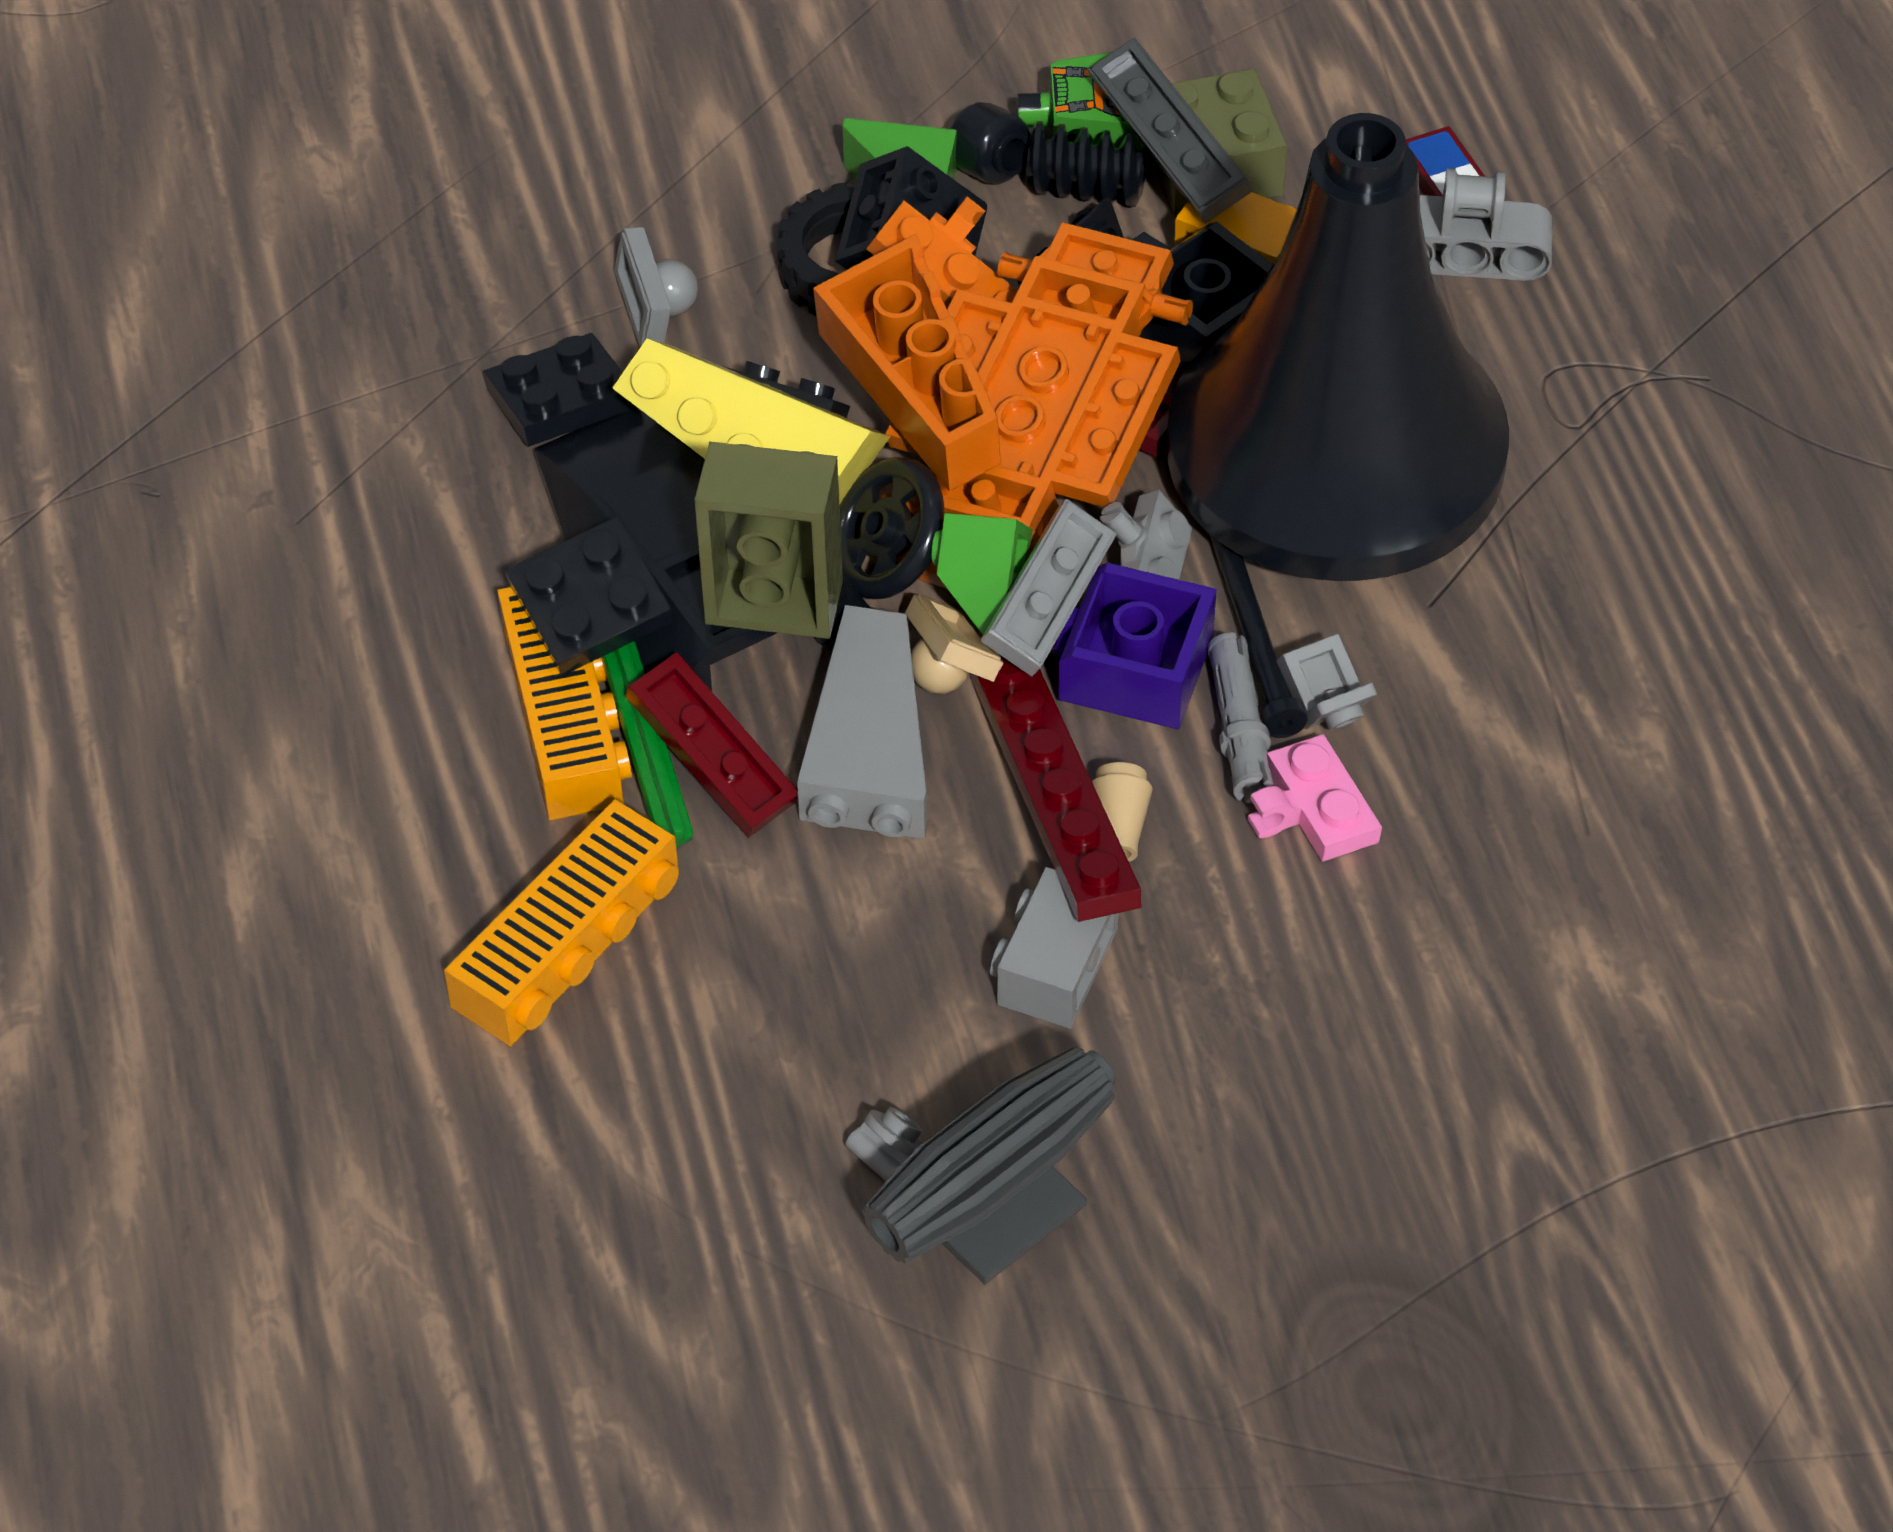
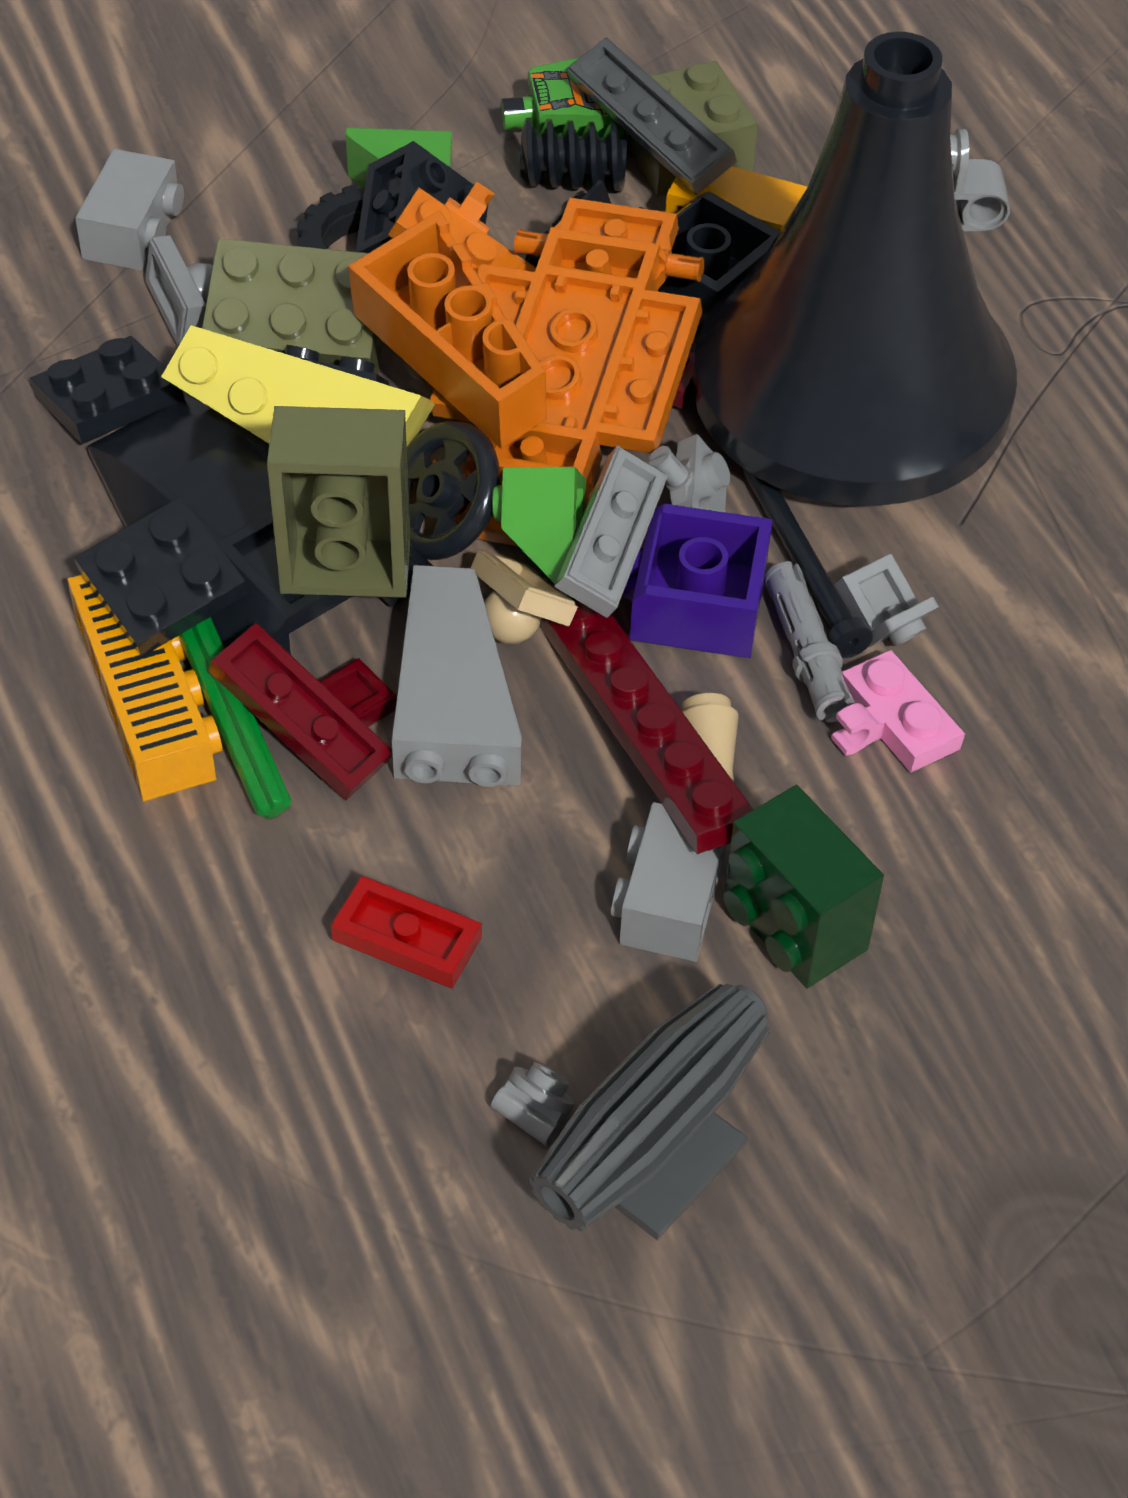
camera: 10 degrees left, 0 degrees up
(562, 923) = (169, 905): light orange brick -> none
(605, 191) = (128, 208): none -> light grey brick
(754, 310) = (288, 298): none -> olive brick
(776, 730) = (362, 692): none -> dark red tile
(788, 971) = (406, 931): none -> red plate
(990, 143) = (483, 143): black head -> none
(1177, 964) = (801, 886): none -> dark green piece

